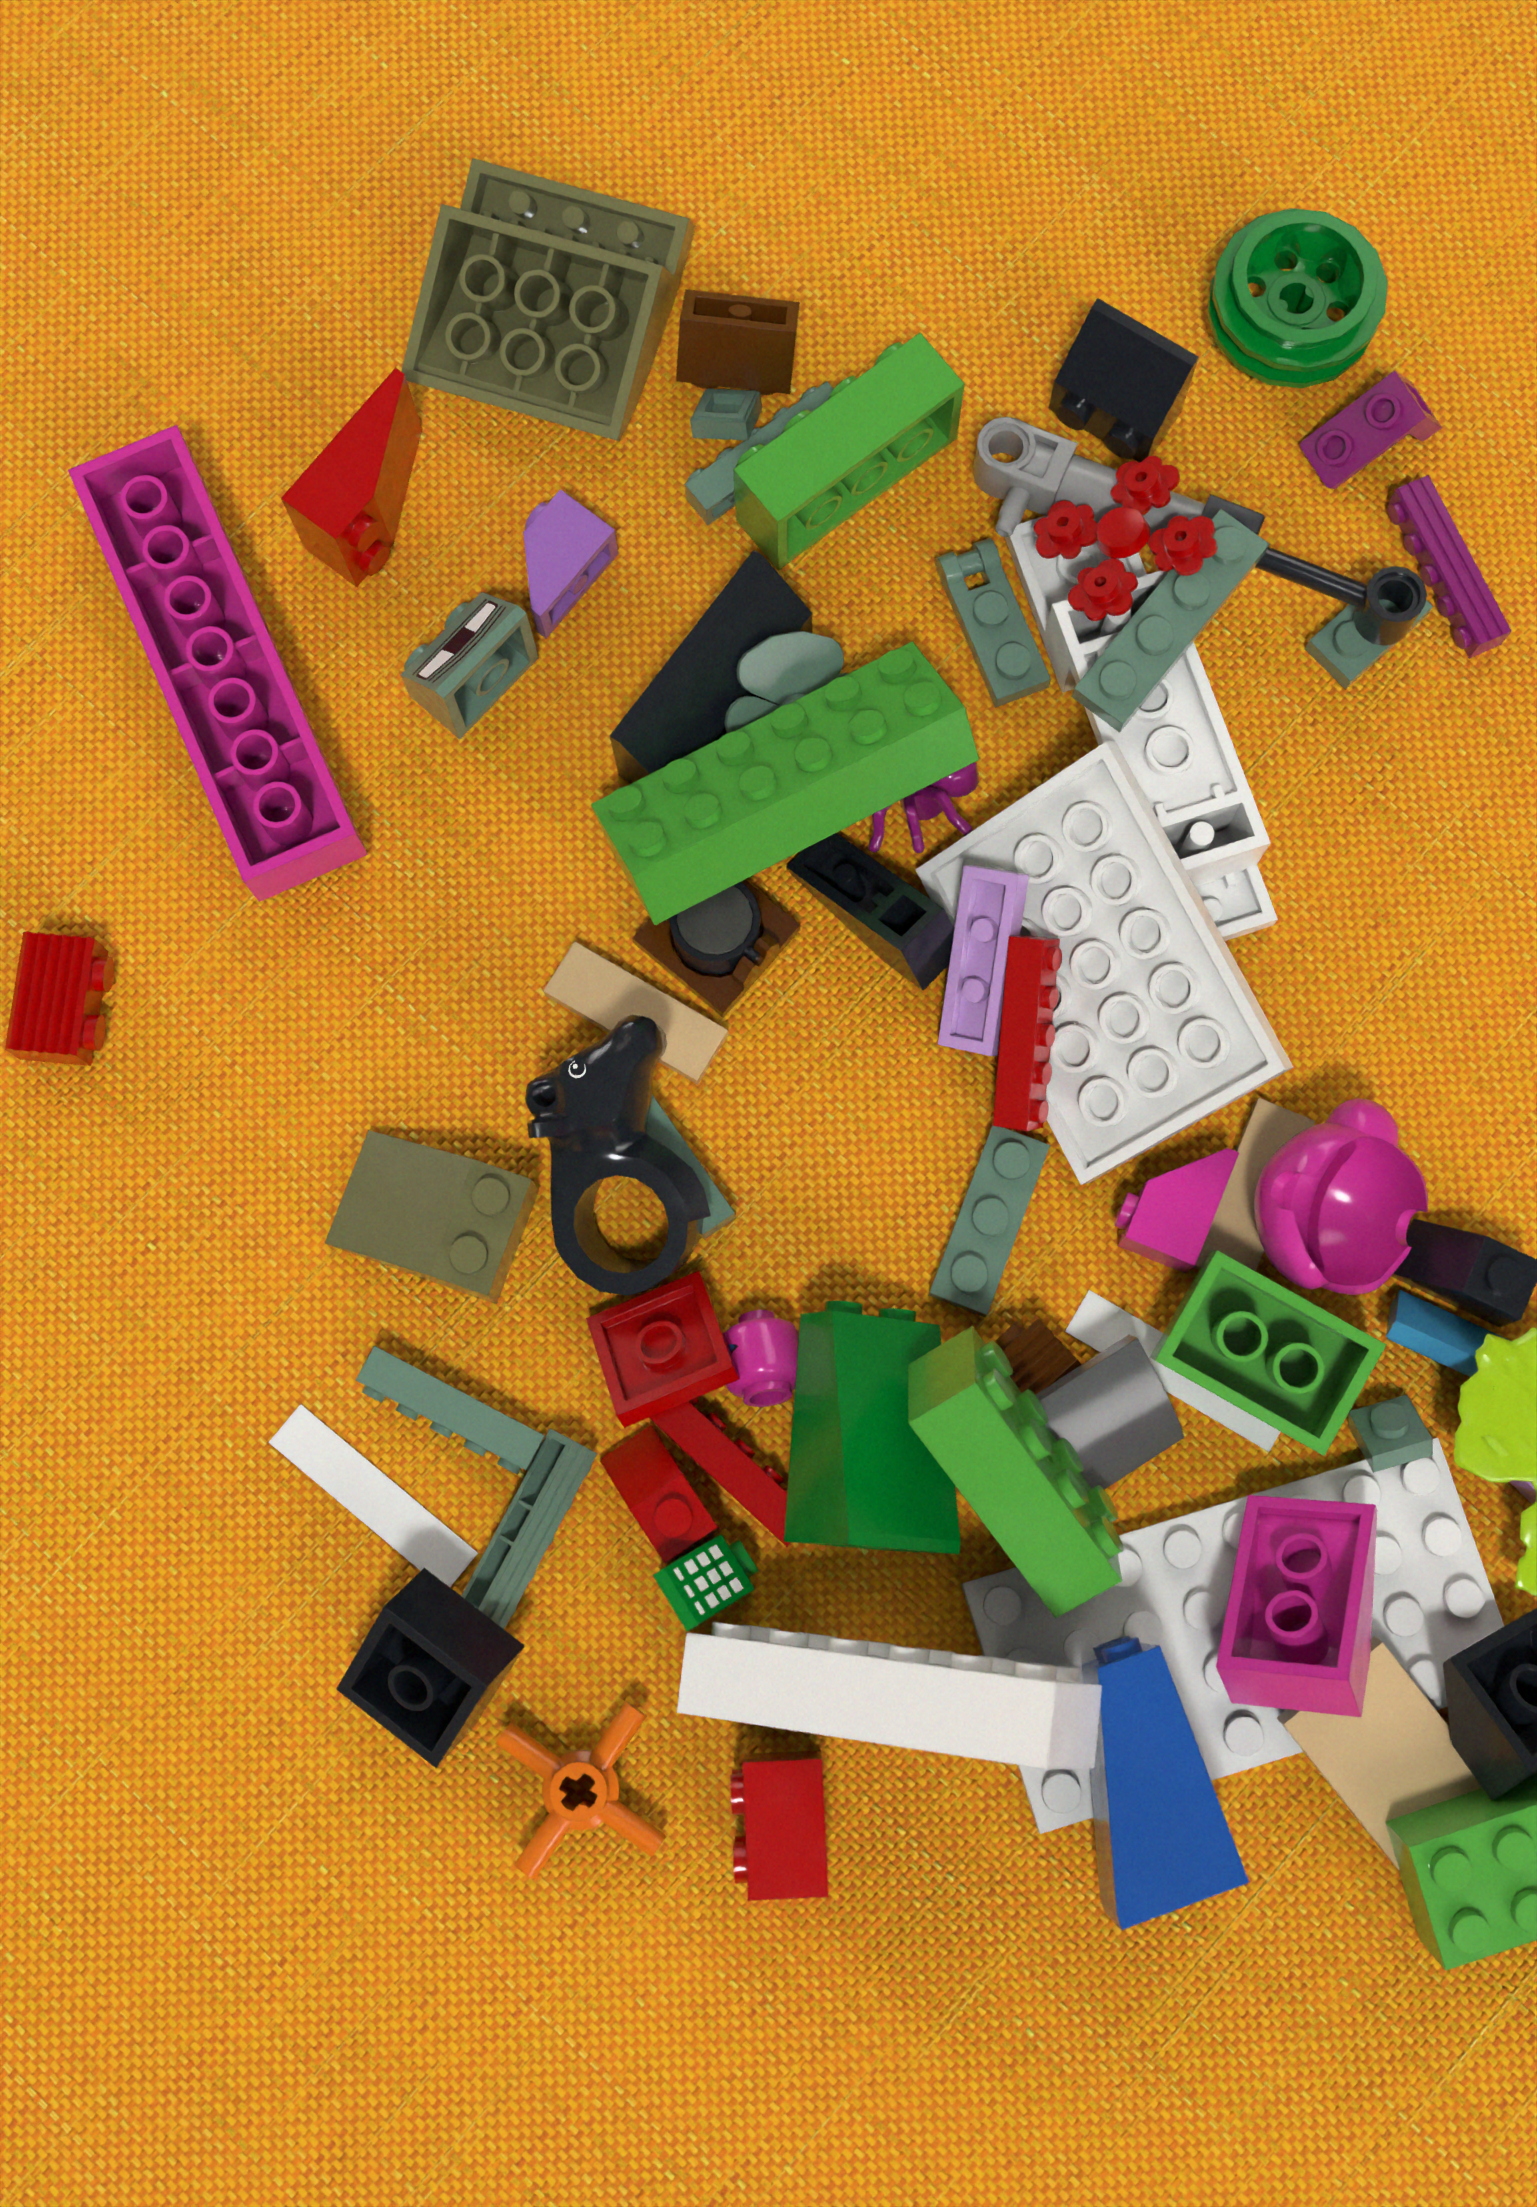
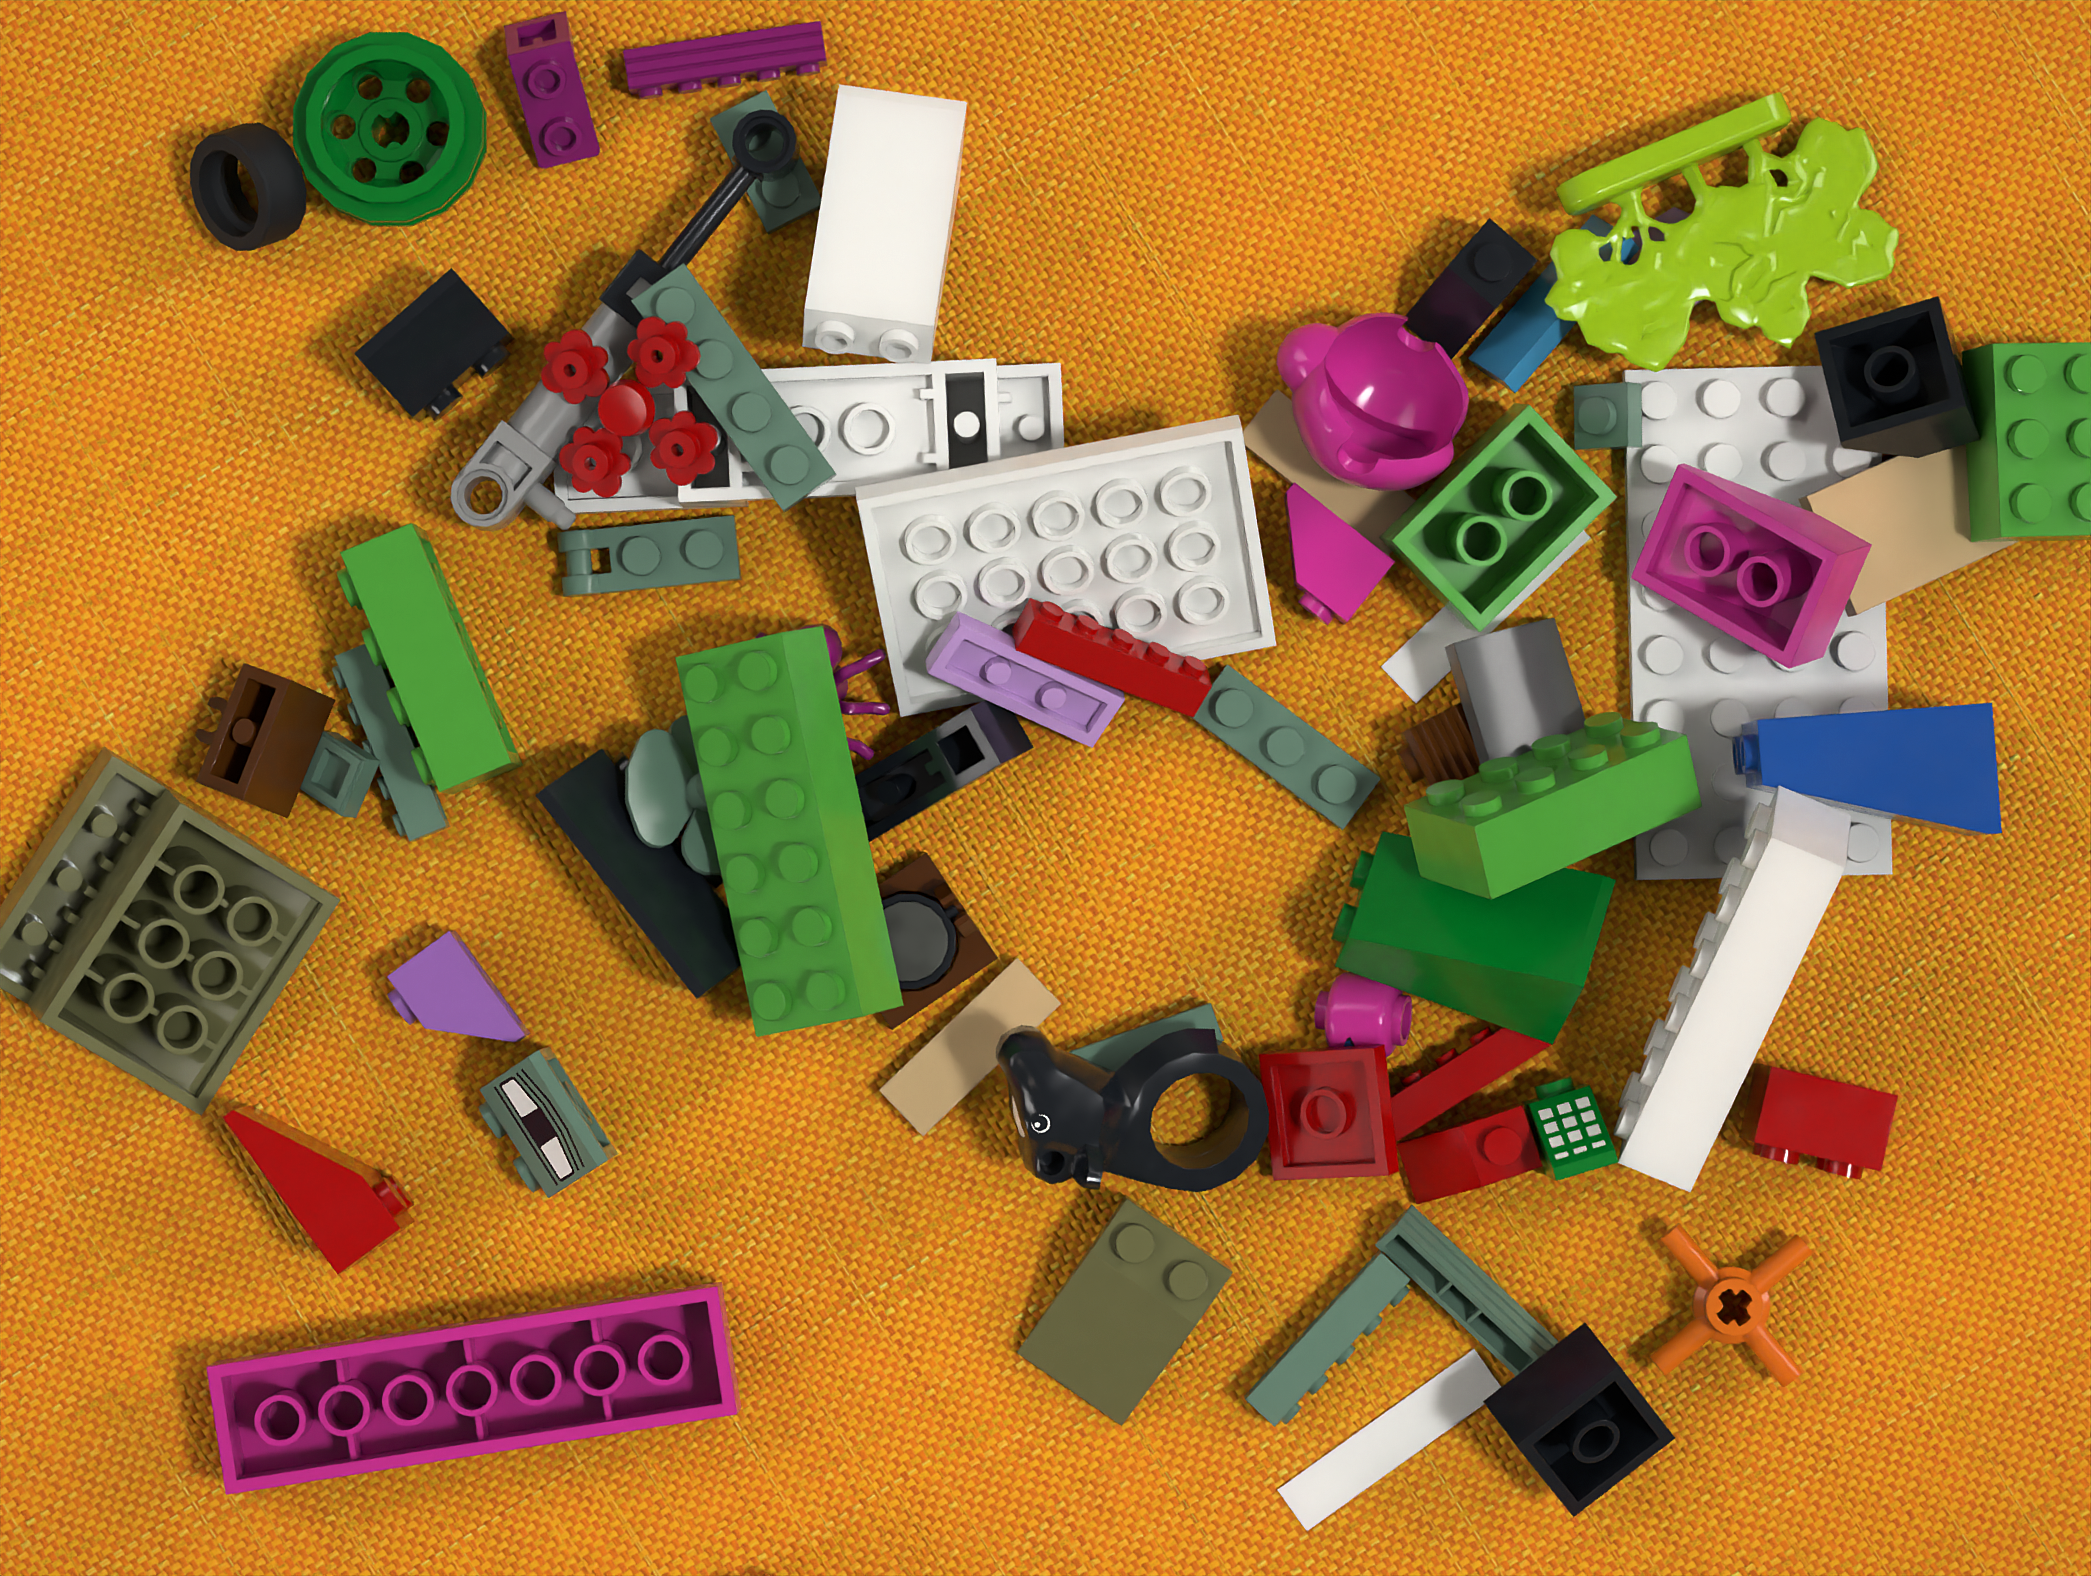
camera: 75 degrees left, 10 degrees up
(1209, 200) = (276, 181): none -> black tyre
(1359, 717) = (884, 224): none -> white slope

